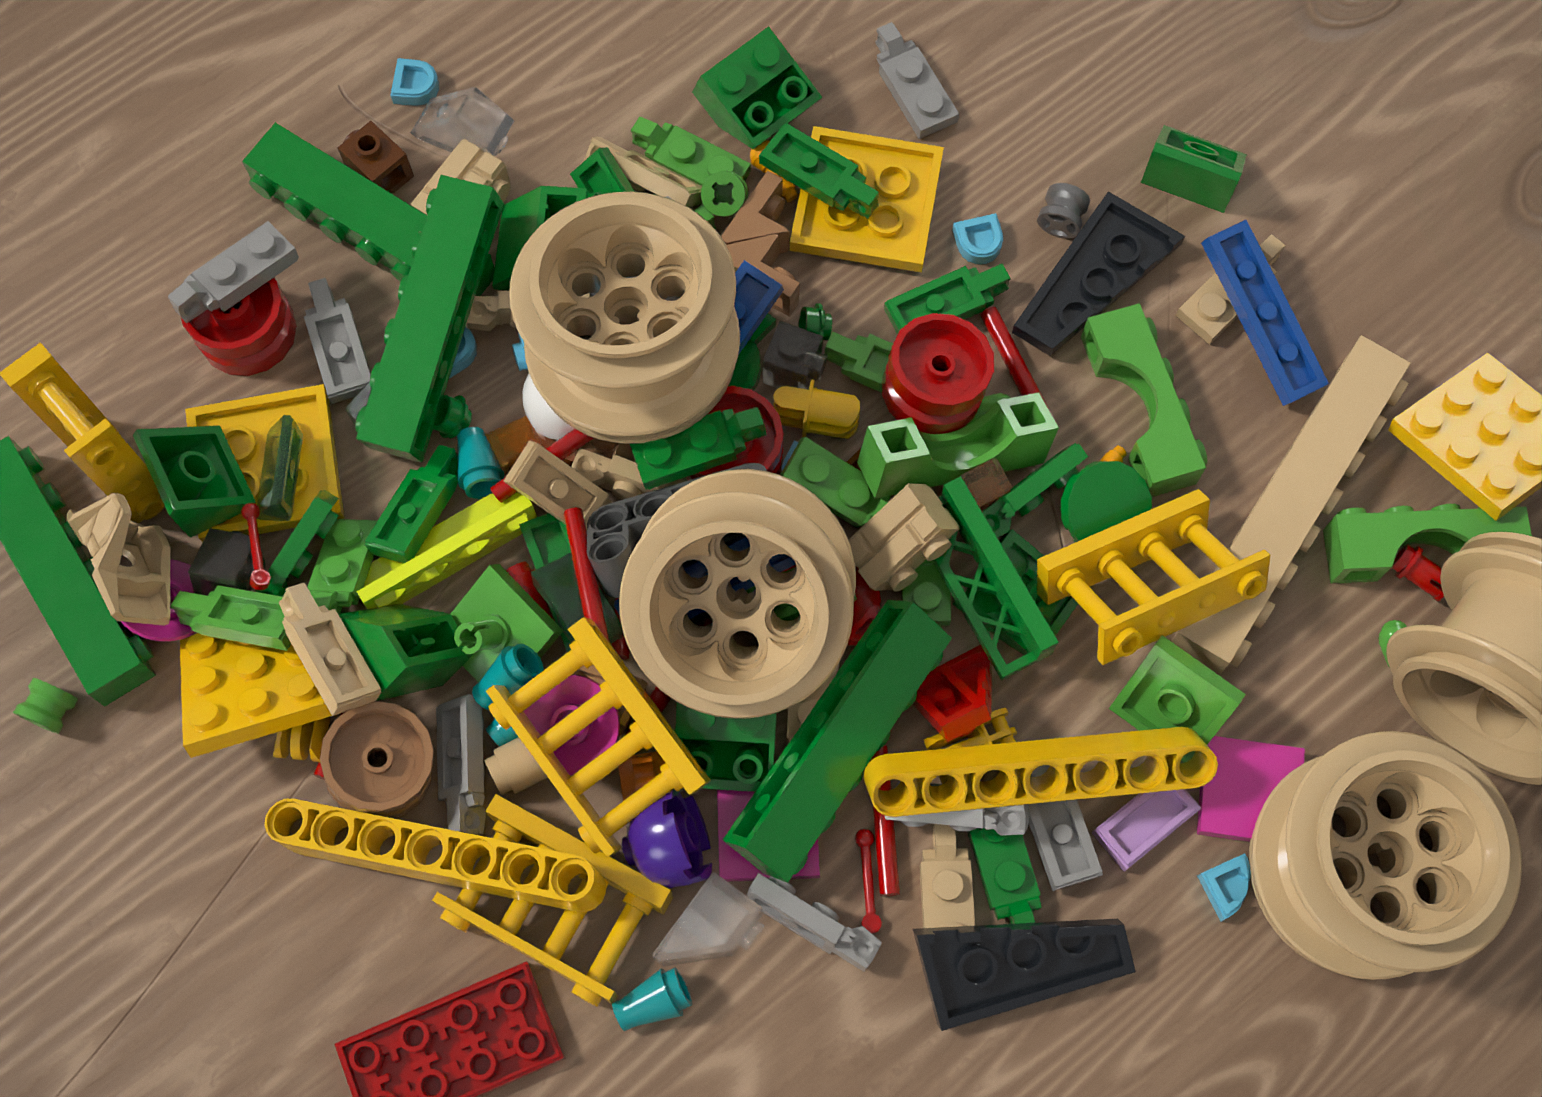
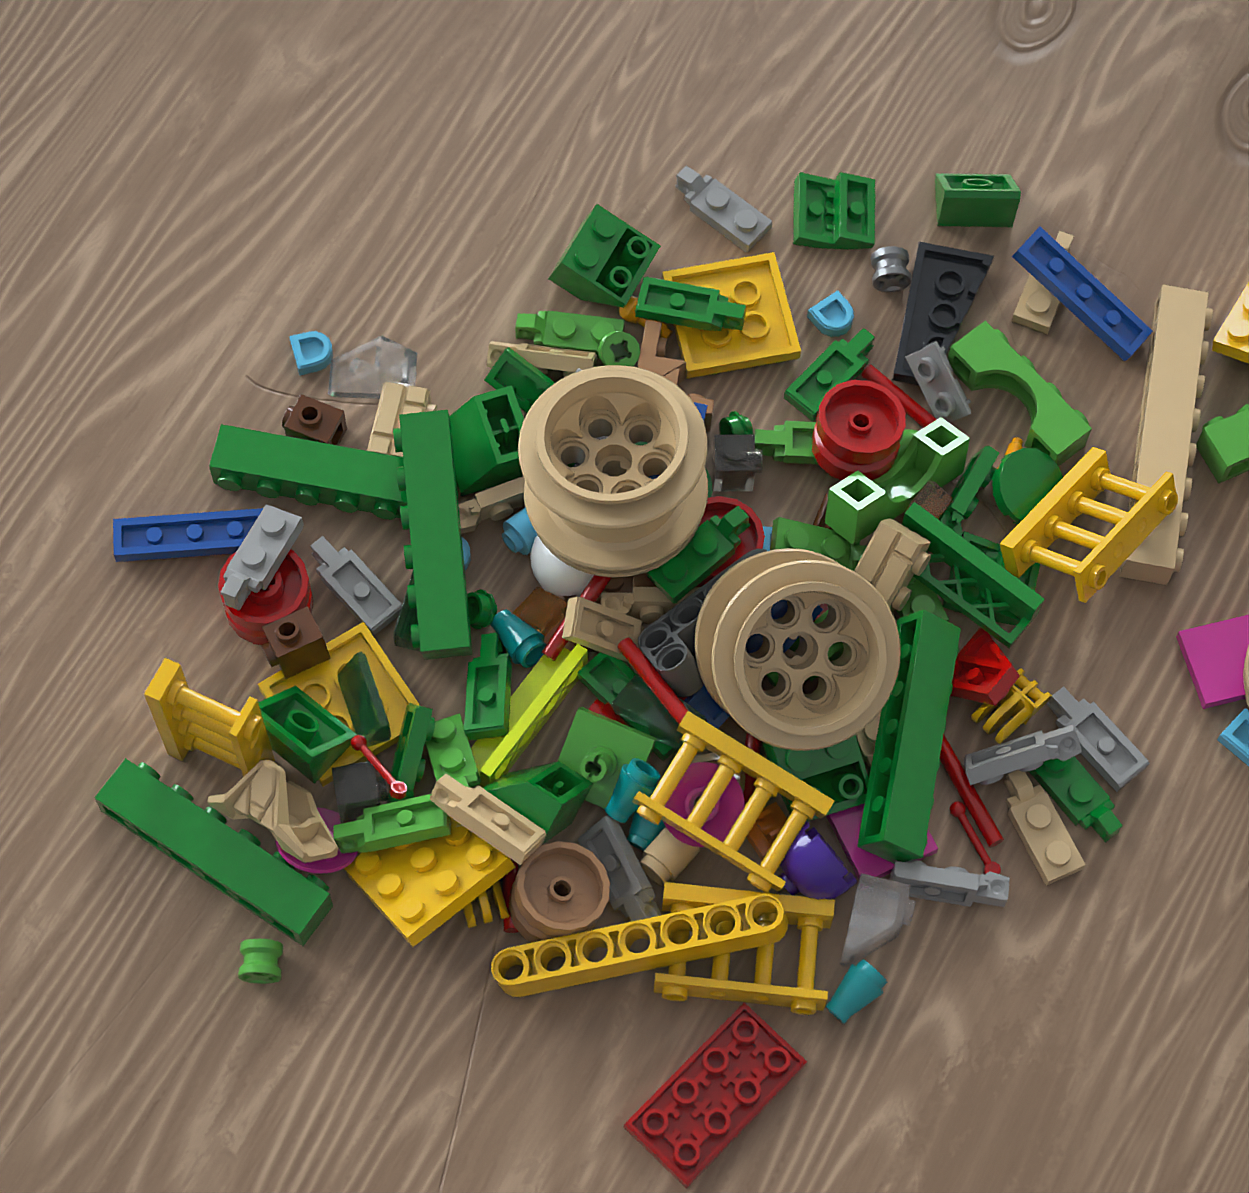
camera: 25 degrees left, 5 degrees down
(183, 221) = (181, 534): none -> blue plate
(235, 380) = (294, 643): none -> reddish brown brick
(818, 411) = (774, 494): yellow arm -> none
(1009, 966) = (1111, 857): black wing -> none
(1032, 127) = (834, 211): none -> green slope
(1059, 371) = (938, 384): none -> light grey hinge
(1059, 783) = (1055, 699): yellow beam -> none
(1144, 824) = (1162, 712): lavender tile -> none
(1176, 692) = (1147, 612): bright green tile -> none

